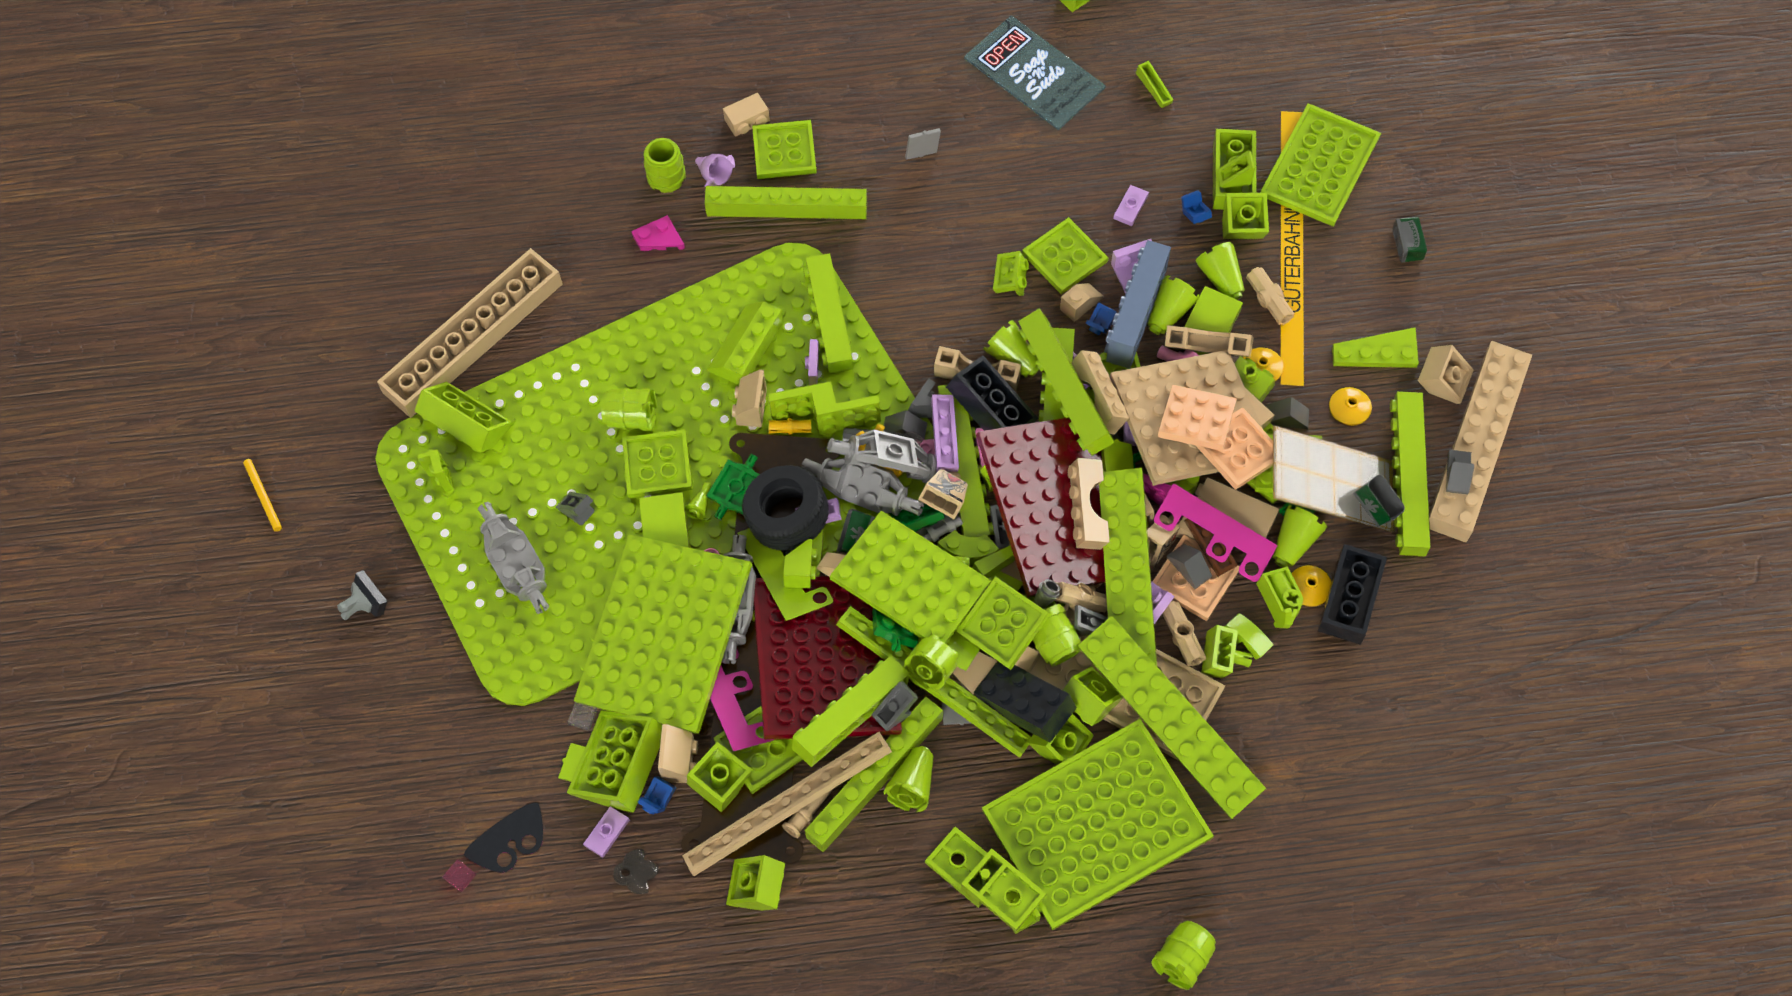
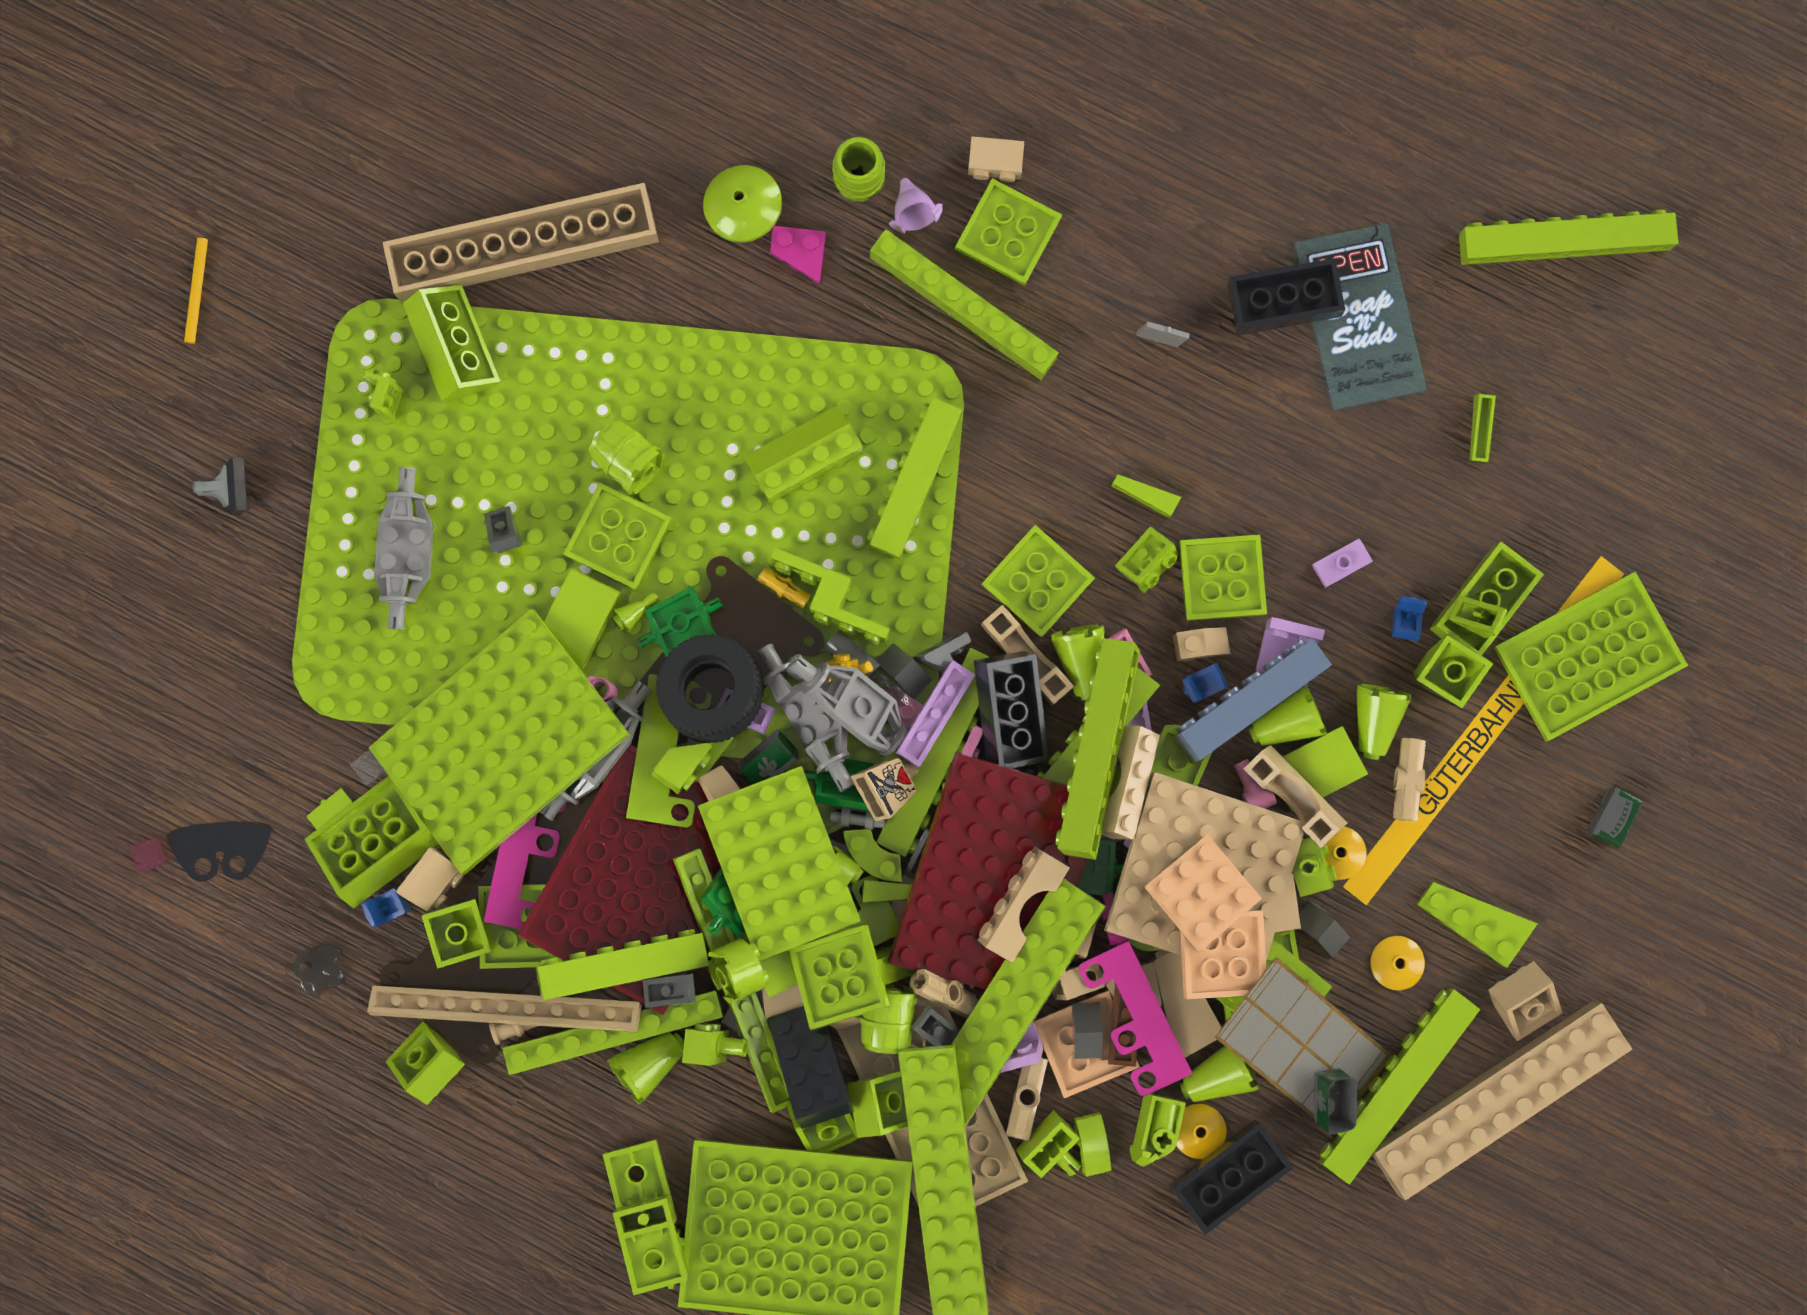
camera: 25 degrees right, 20 degrees up
(606, 832) = (315, 908): lavender plate -> none
(607, 237) = (744, 218): none -> lime dish
(750, 400) = (760, 531): tan slope -> none
(812, 362) = (857, 527): lavender plate -> none
(946, 734) = (710, 1045): none -> lime brick
(951, 325) = (1038, 581): none -> lime plate
(981, 81) = (1286, 296): none -> black brick
(983, 239) = (1150, 496): none -> lime piece
(1046, 593) = (905, 976): flat silver cone -> none
(1117, 456) = (1099, 872): lime piece -> none
(1459, 472) = (1441, 1130): dark grey slope -> none

